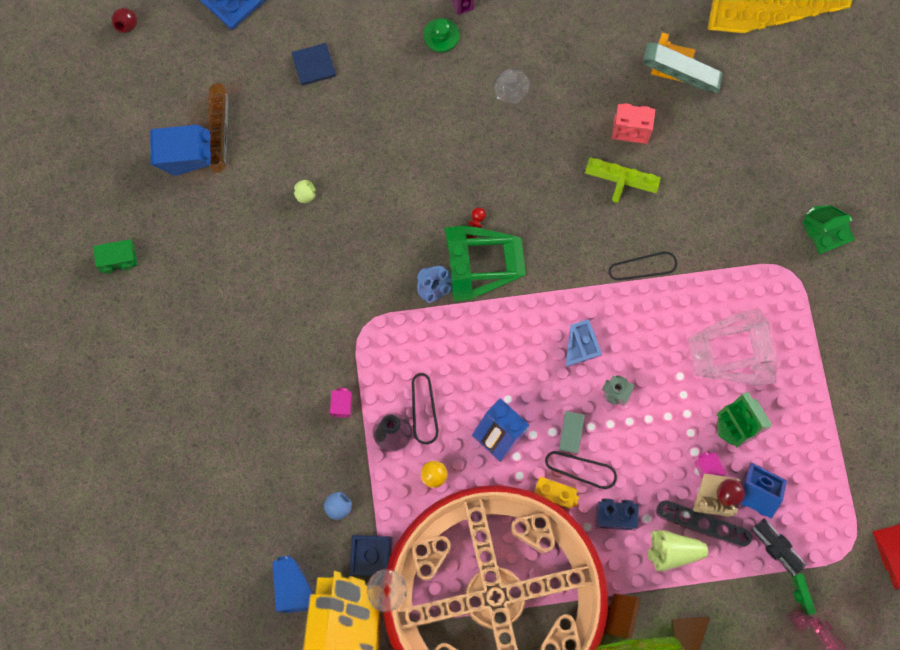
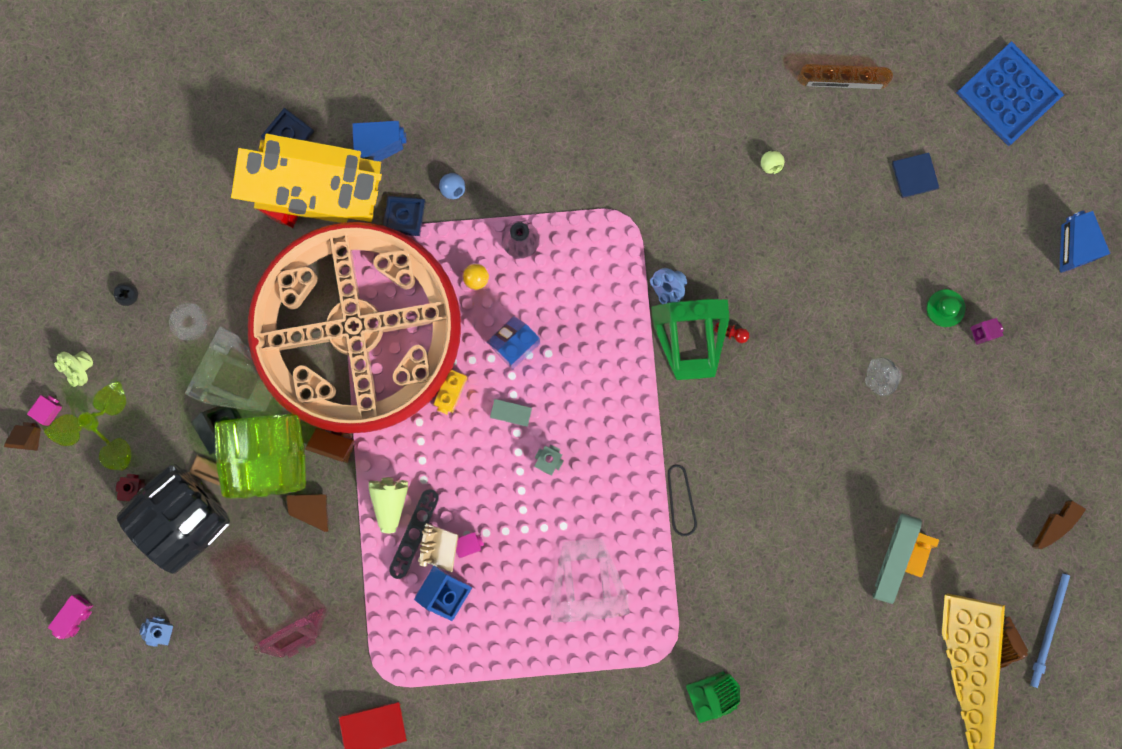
camera: 90 degrees right, 10 degrees up
(180, 148) = (820, 37): blue slope -> none
(341, 403) = (552, 192): dark pink brick -> none
(376, 590) = (359, 215): clear tile -> none
(433, 408) = (545, 280): black piece -> none
(582, 344) = (599, 429): medium blue wing -> none
(585, 460) = (466, 415): black piece -> none
(617, 515) = (426, 449): dark blue brick -> none
(622, 176) = (779, 486): lime plate -> none
(633, 123) = (835, 500): coral piece -> none
(730, 492) = (437, 559): dark red piece -> none
(742, 420) = (512, 582): green piece -> none
(778, 547) = (386, 604): black piece -> none
(802, 594) = (341, 623): green plate -> none

